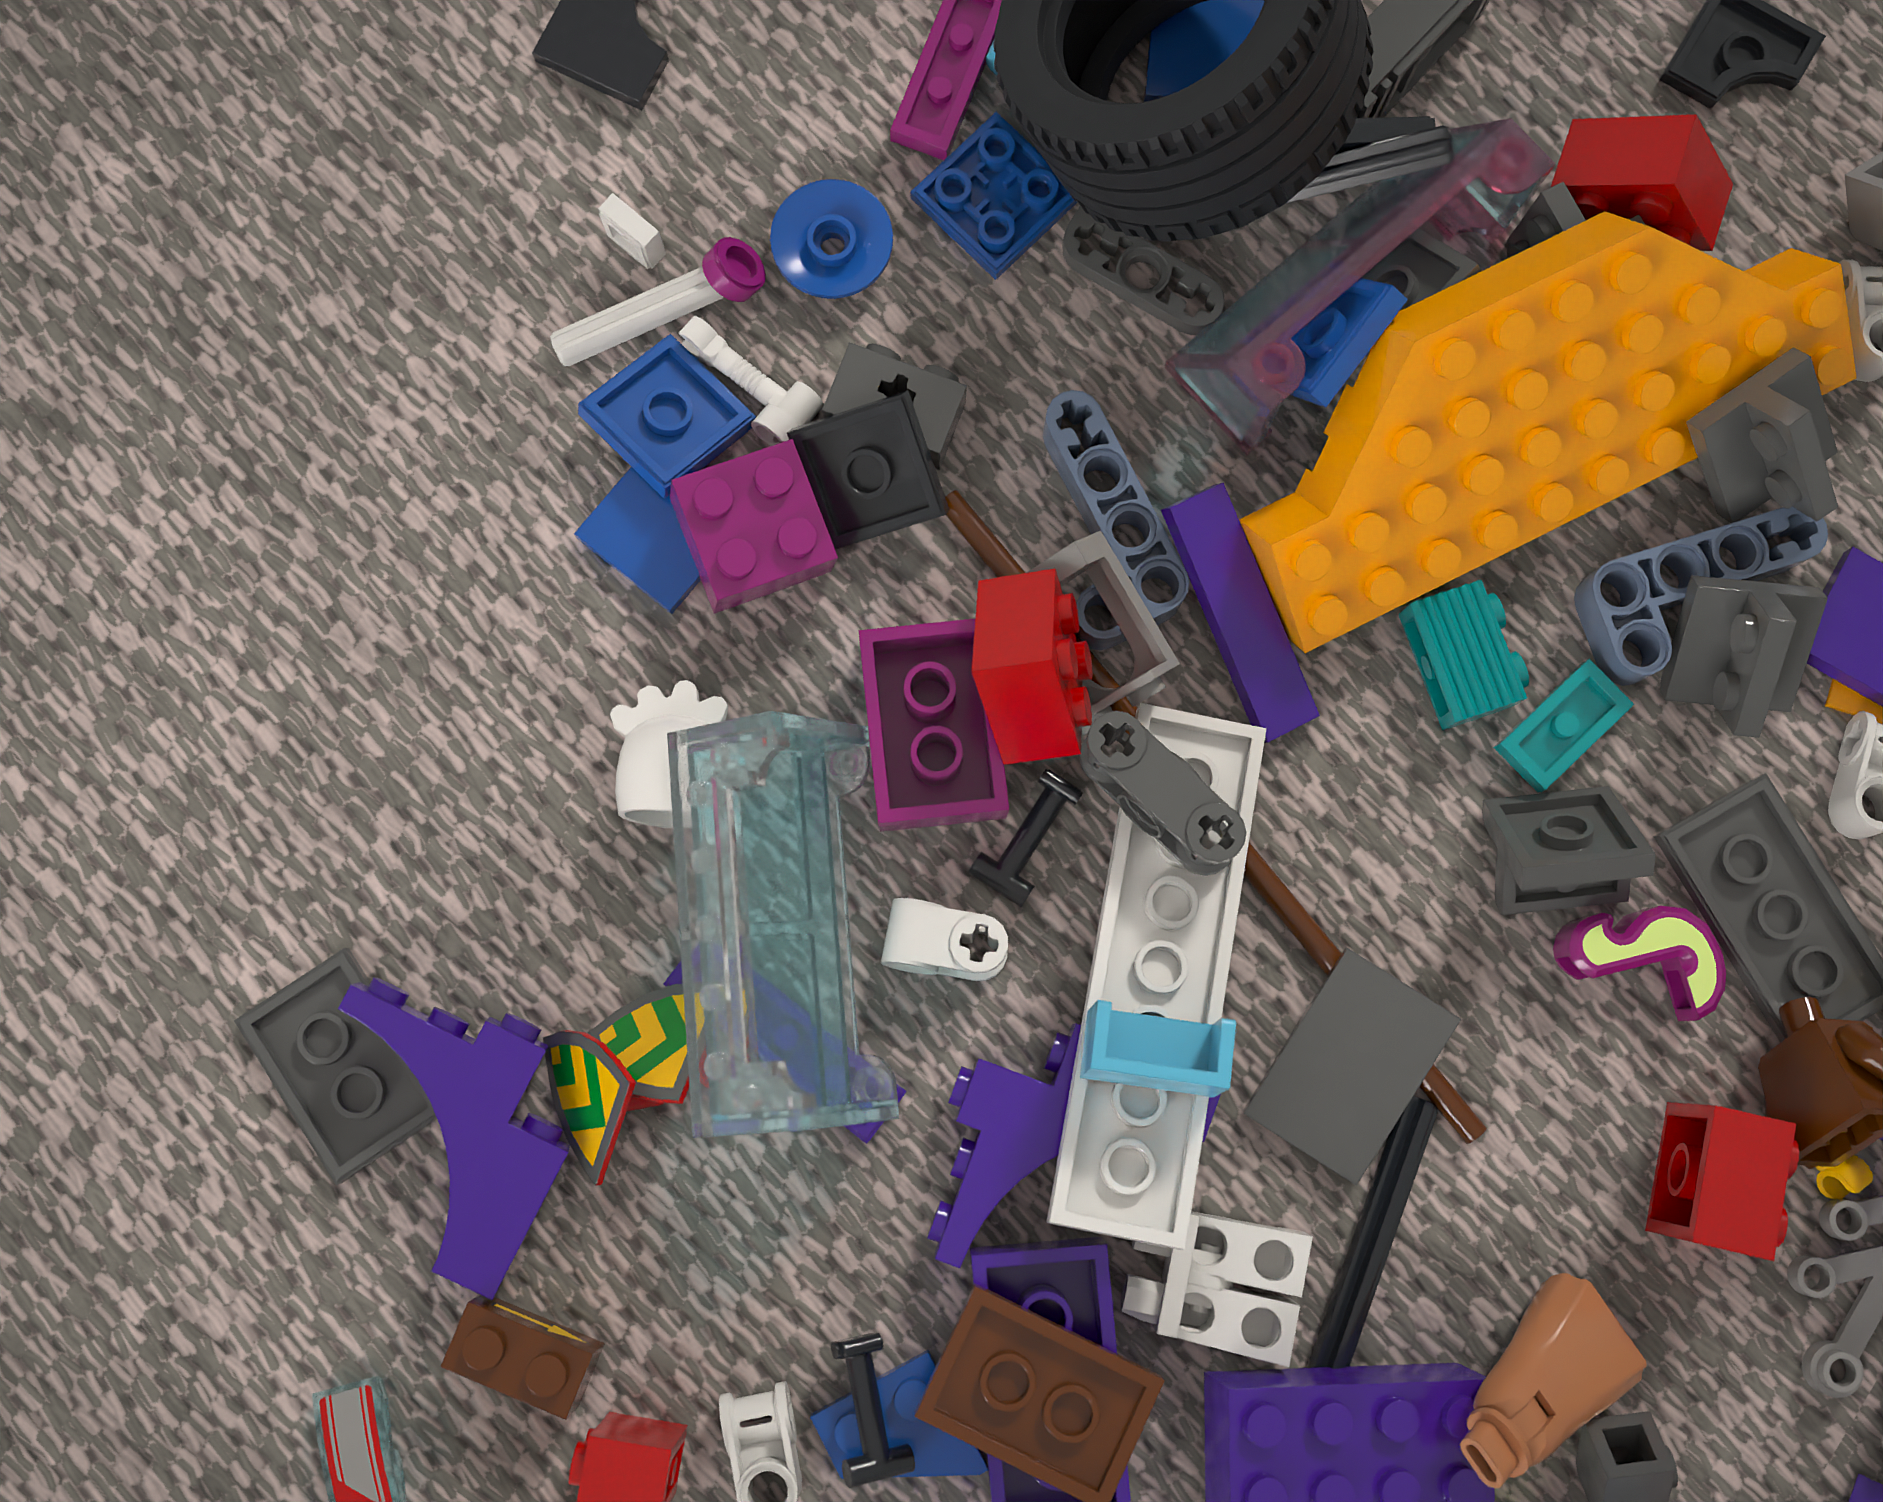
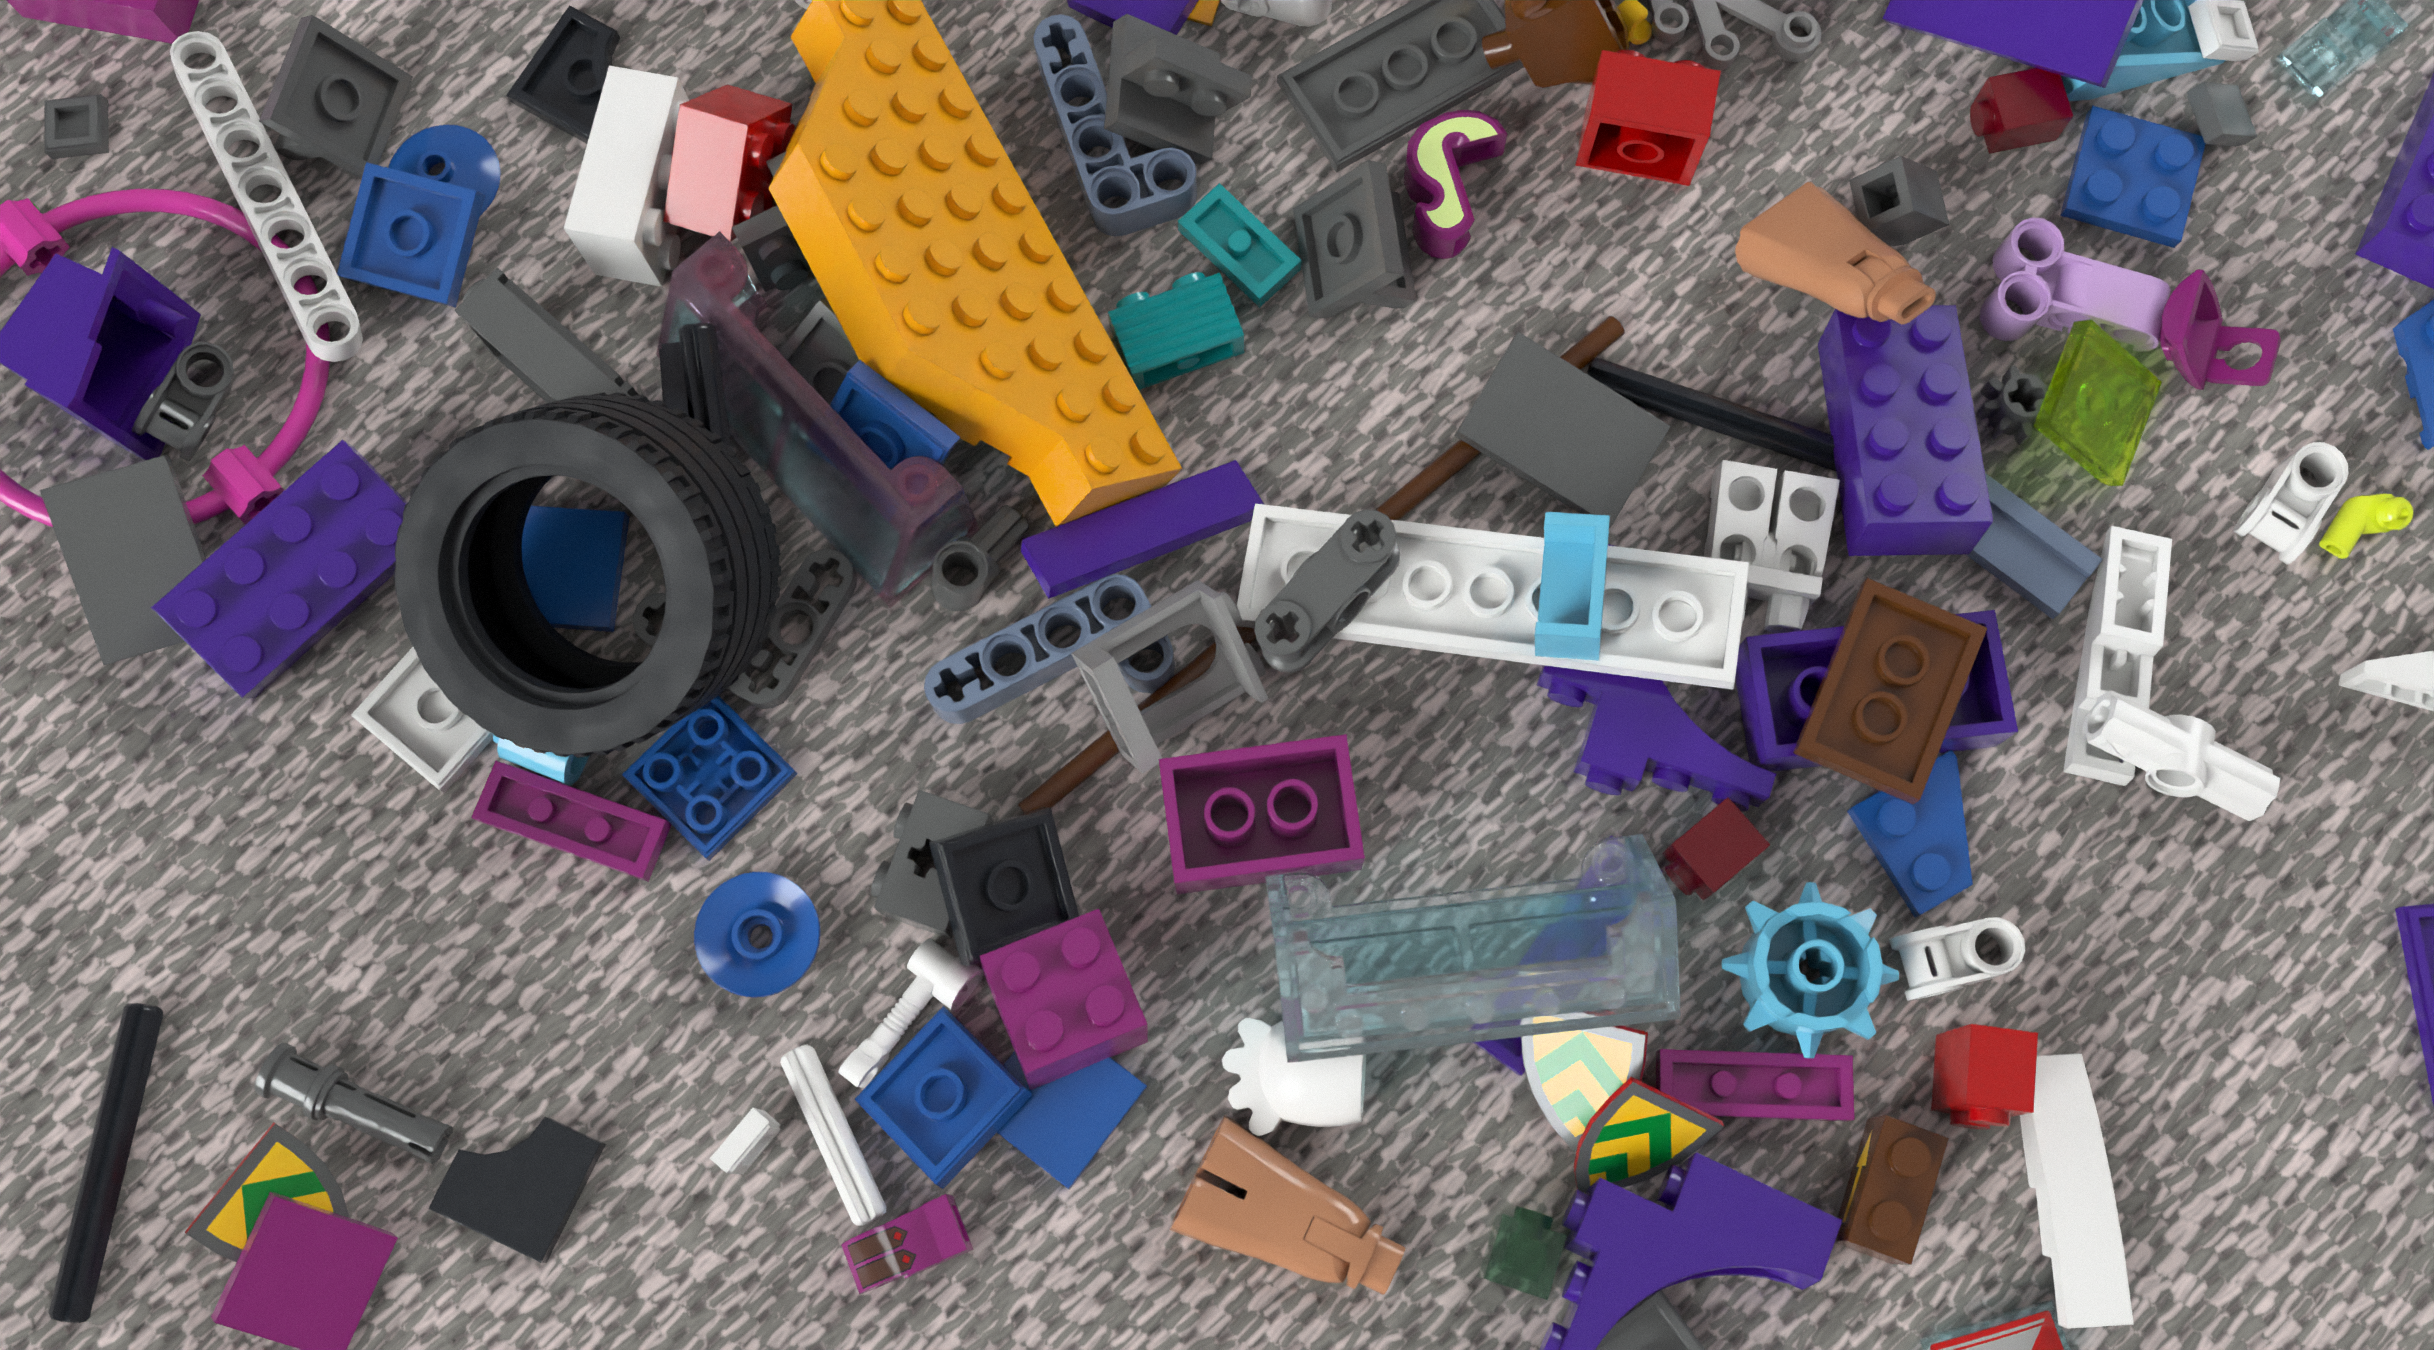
camera: 85 degrees left, 5 degrees down
(481, 971) = (1523, 1253): none -> clear green brick
(528, 384) = (907, 1244): none -> magenta leg
(540, 730) = (1282, 1215): none -> nougat piece
(640, 1226) = (1759, 1084): none -> magenta plate
(719, 1312) = (1835, 945): none -> medium azure brick
(734, 269) = (787, 1034): magenta tile -> none
(877, 1459) = (1953, 845): black piece -> none
(883, 1197) = (1713, 851): none -> dark red brick
(929, 940) = (1467, 811): white piece -> none
(1004, 874) = (1398, 750): black piece -> none
(1031, 666) = (1210, 710): red brick -> none
(1218, 453) = (979, 556): none -> dark grey axle
(1624, 73) = (625, 179): none -> white brick
(1768, 442) = (980, 58): dark grey bracket -> none

